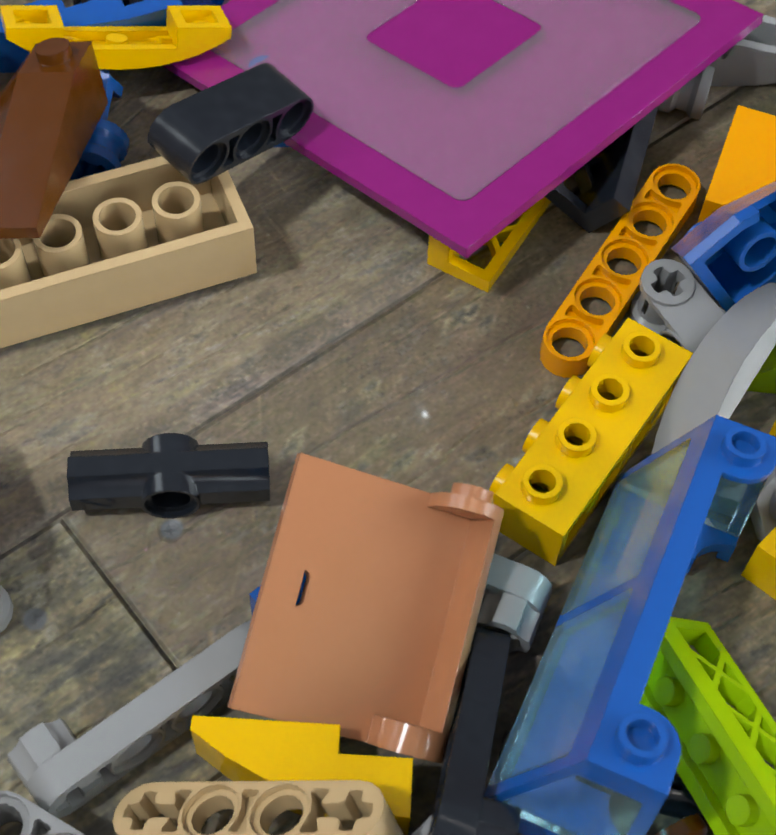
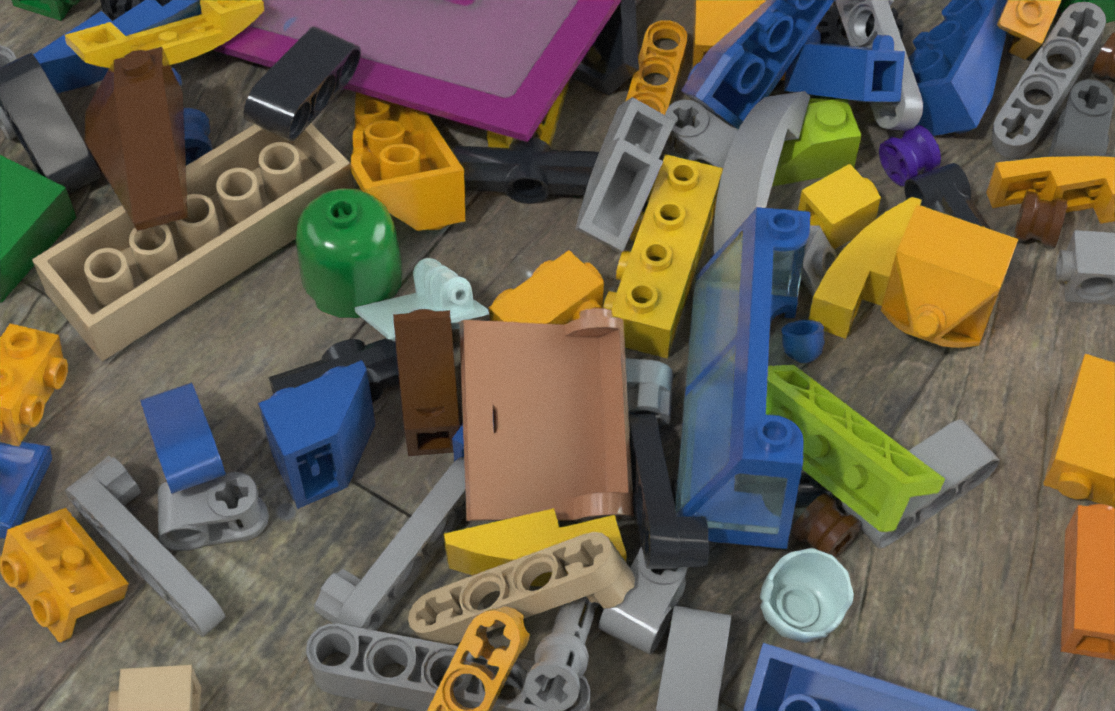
camera: 15 degrees left, 0 degrees up
(96, 537) = (320, 431): none -> blue slope
(217, 330) = (347, 252): none -> green cylinder
(238, 509) = (427, 380): none -> reddish brown slope
(298, 422) = (435, 289): none -> light aqua hinge
(319, 250) = (406, 164): none -> light orange wedge
(434, 450) = (552, 294): none -> light orange brick
(462, 293) = (526, 170): none -> black piece
(569, 328) = (623, 173): none -> light grey slope
(730, 595) = (803, 340): none -> blue hinge

